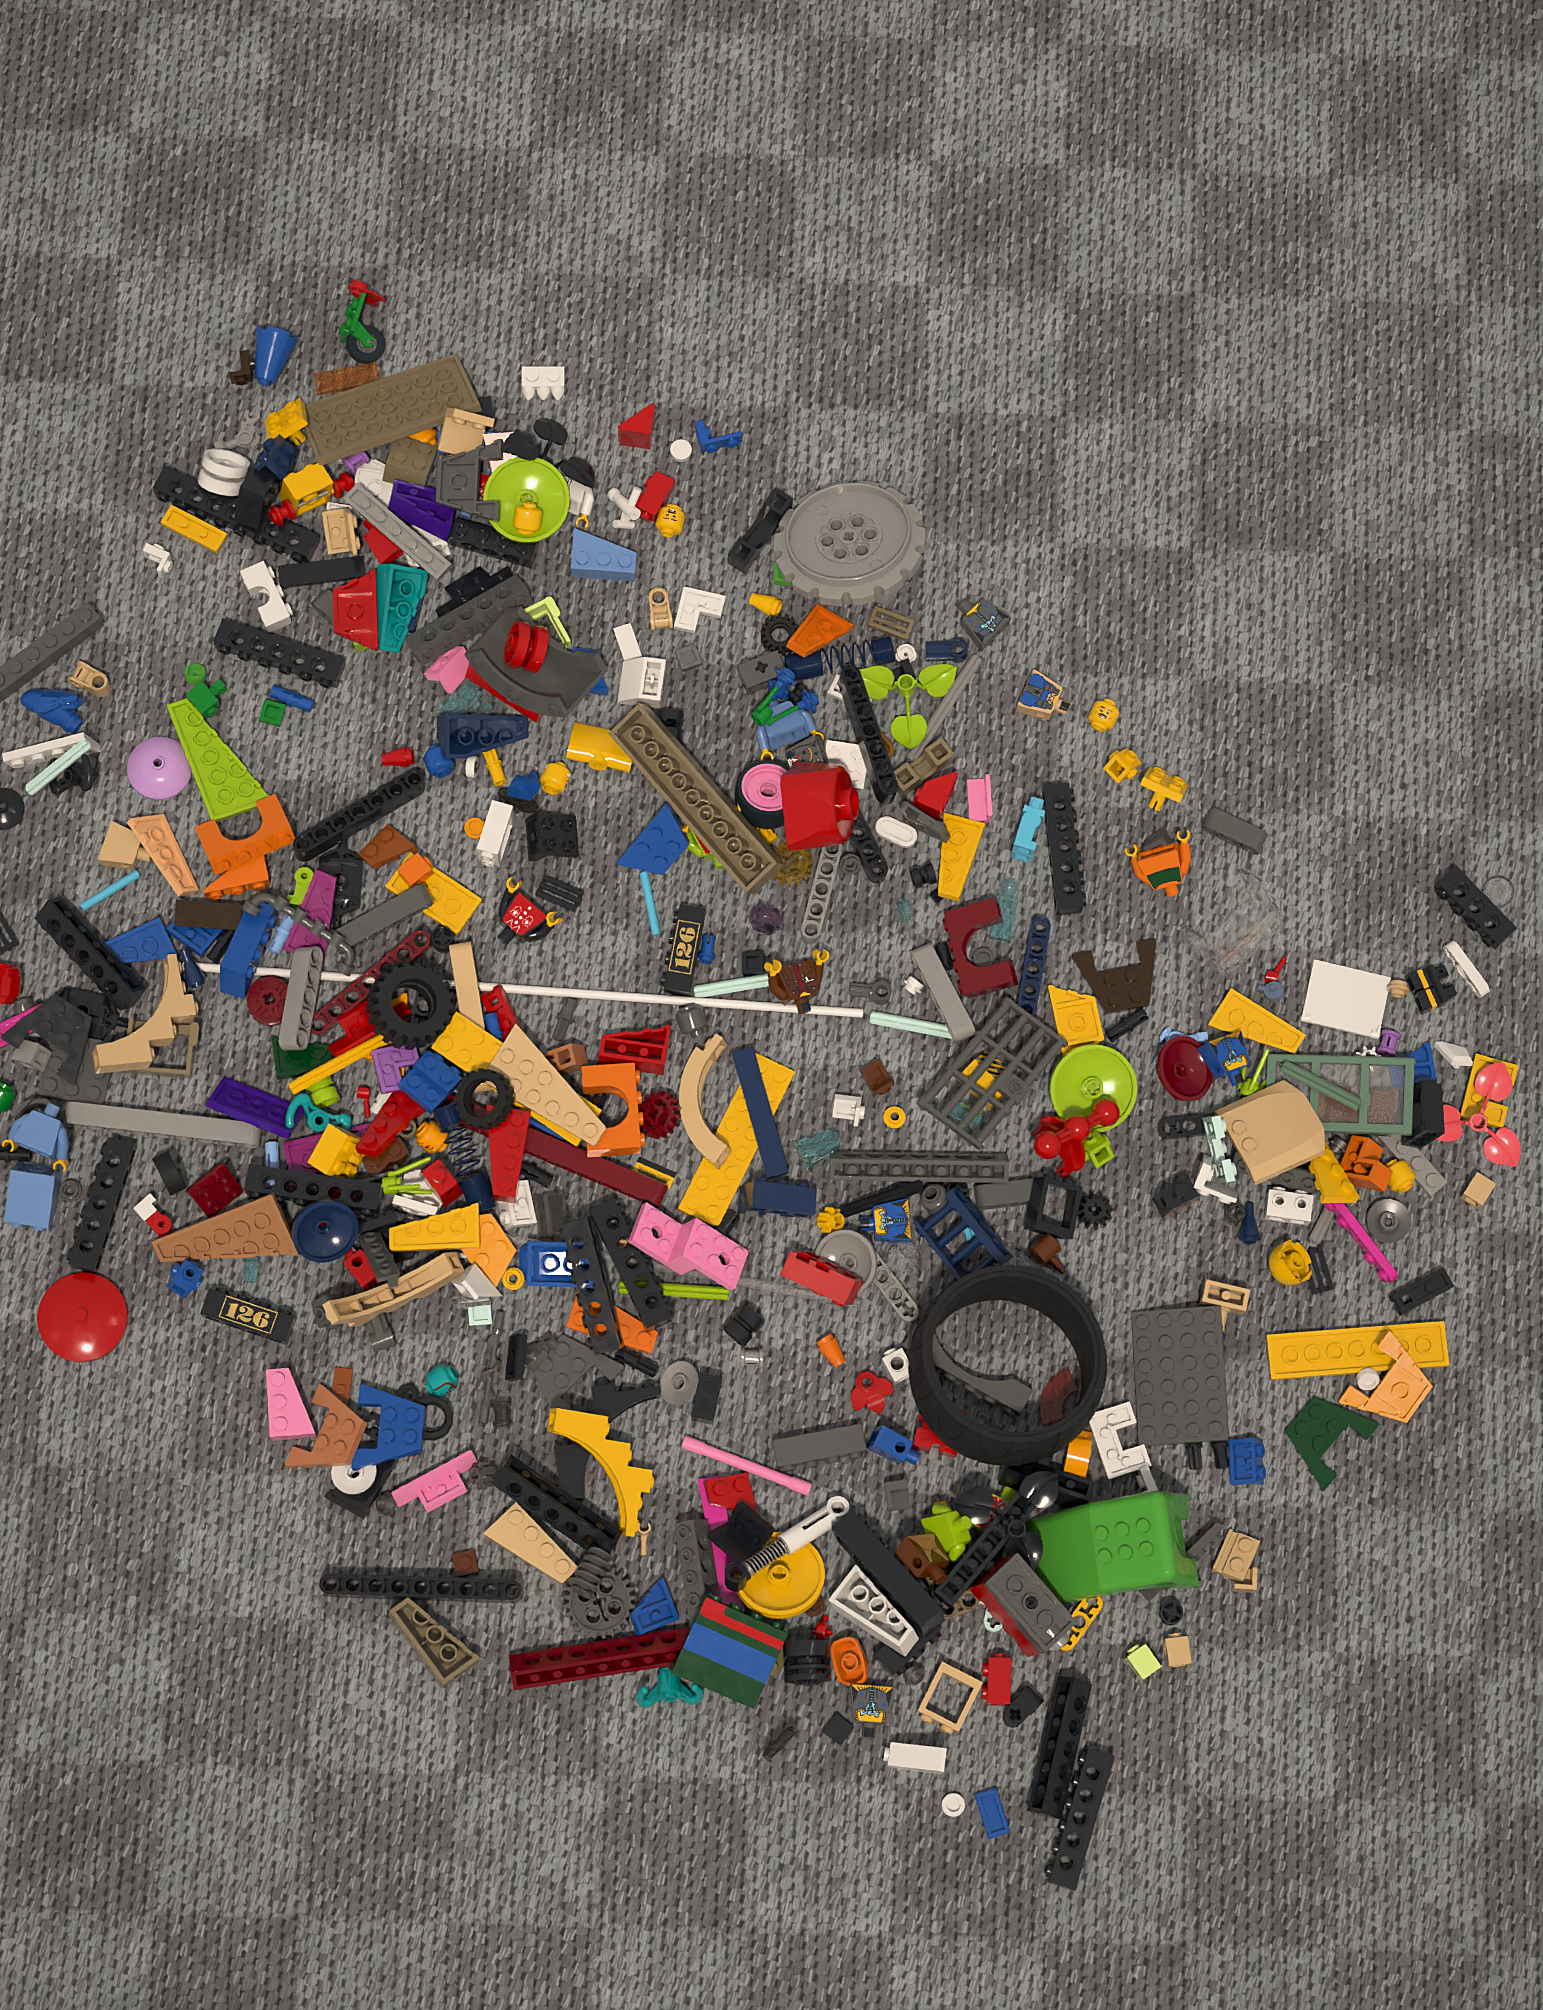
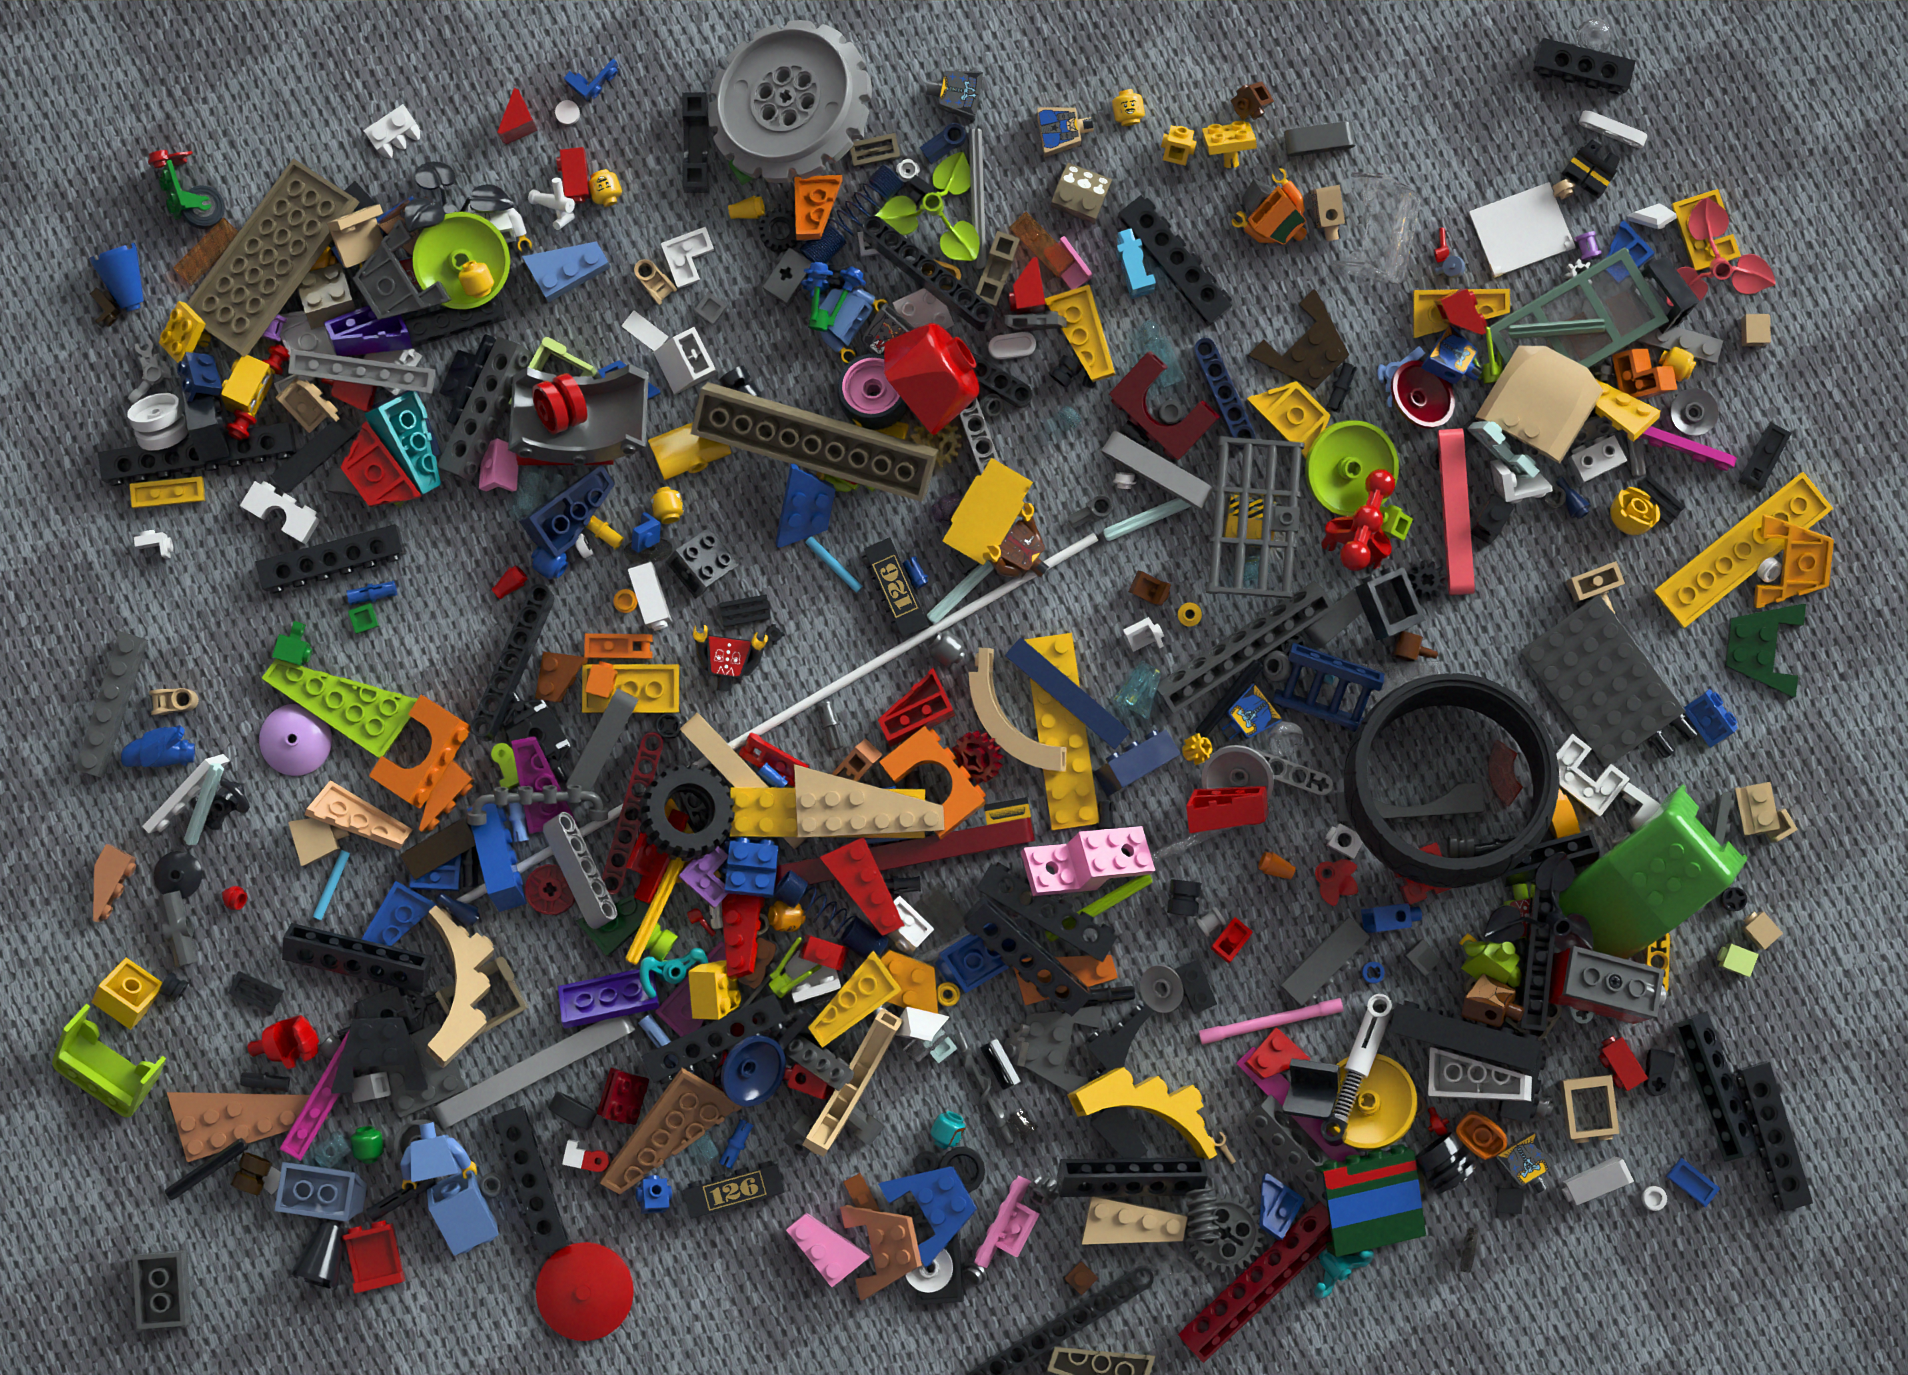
camera: 30 degrees left, 10 degrees up
(32, 851) = (234, 898): none -> red plate
(195, 673) = (266, 629): bright green tile -> none
(274, 1283) = (736, 1143): none -> blue pin
(446, 856) = (617, 646): none -> orange plate
(503, 1104) = (796, 866): black tyre -> none
(569, 925) = (774, 634): none -> black piece
(757, 1381) = (1231, 940): none -> red slope
(792, 935) = (987, 510): none -> yellow piece
(846, 1487) = (1372, 979): none -> blue bush
(969, 771) = (1042, 244): none -> clear orange tile
(1024, 753) = (1081, 193): none -> dark tan slope
(1151, 1174) = (1455, 511): none -> coral beam
(1201, 769) = (1251, 101): none -> reddish brown brick
(1208, 878) = (1328, 199): none -> tan torso
(1253, 1024) = (1460, 311): none -> red slope

